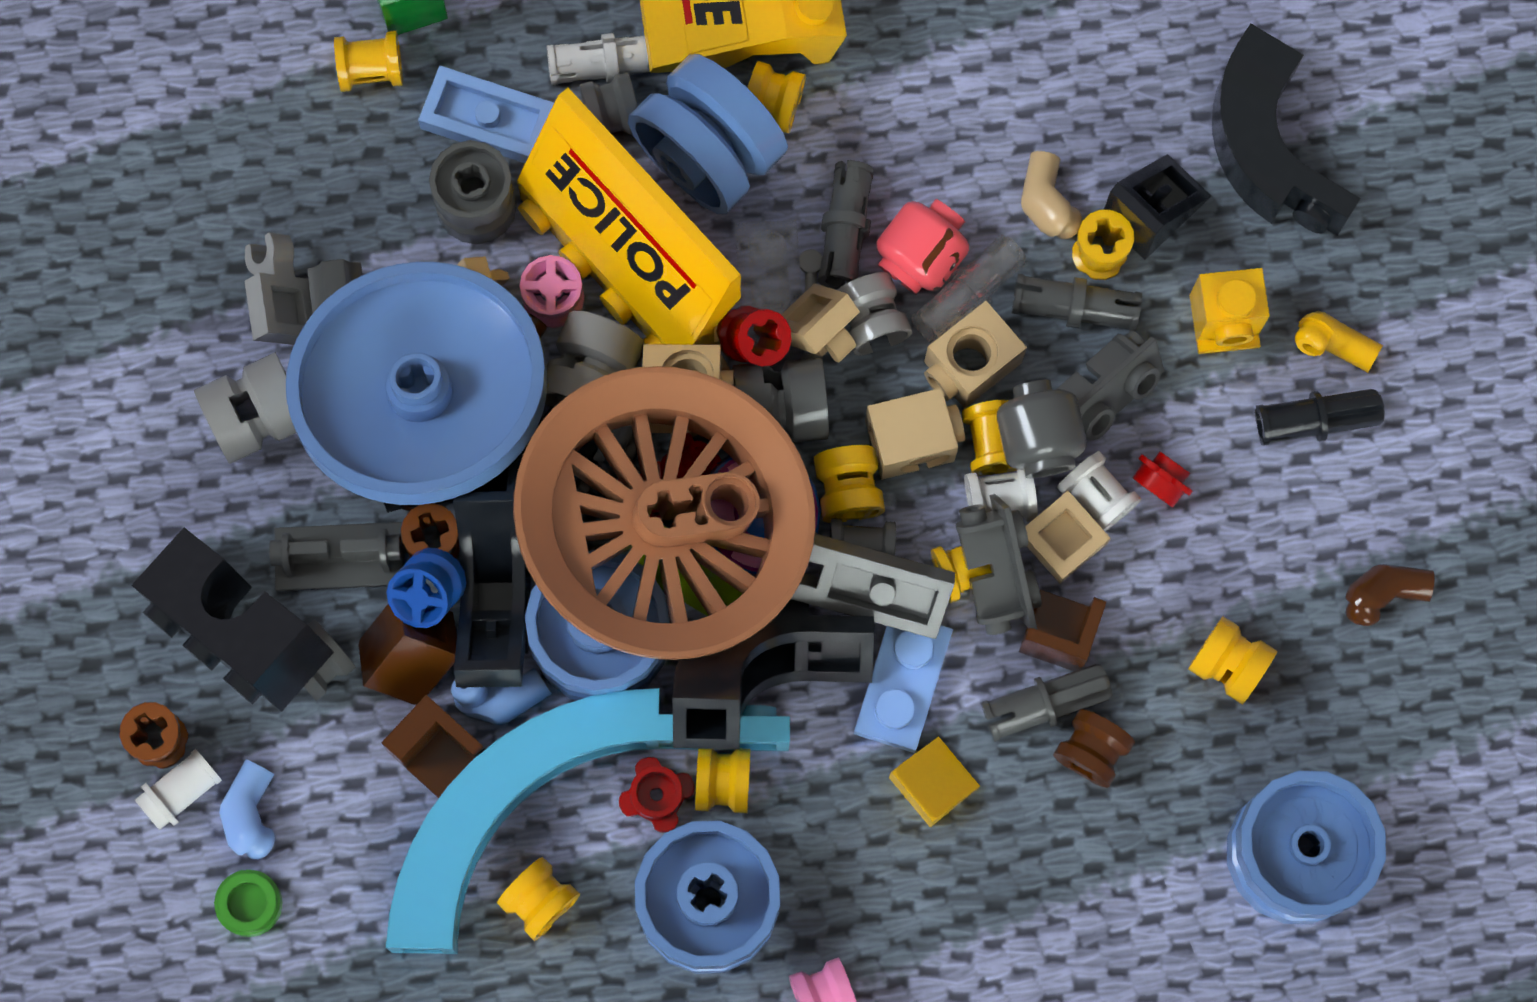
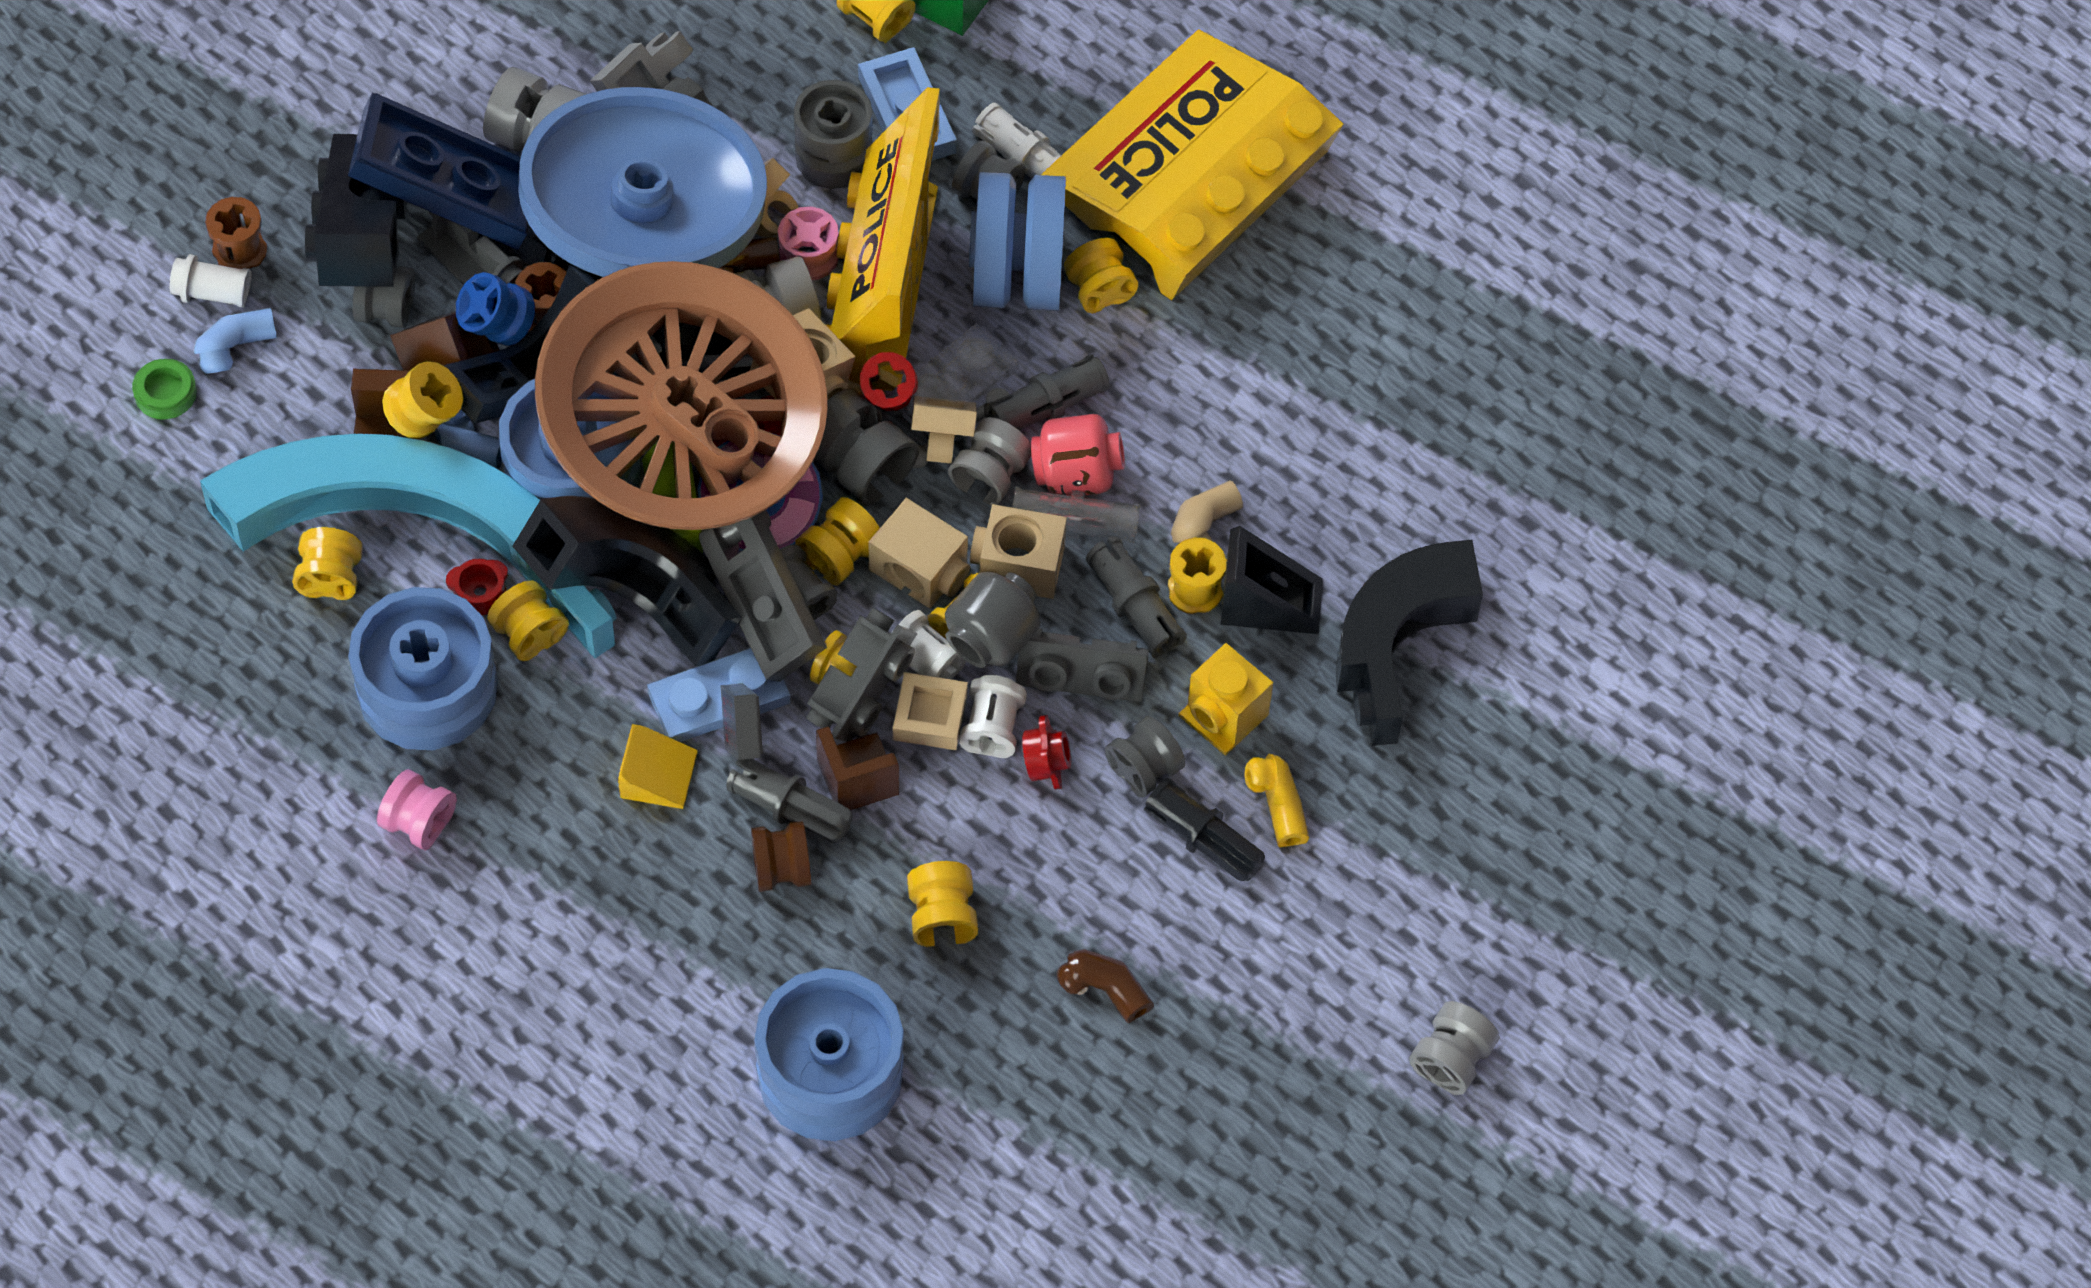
camera: 50 degrees right, 15 degrees down
(251, 526) = (439, 170): none -> dark blue tile
(470, 713) = (422, 400): none -> yellow wheel
(959, 687) = (741, 721): none -> dark grey tile
(1226, 408) = (1145, 756): none -> dark grey wheel

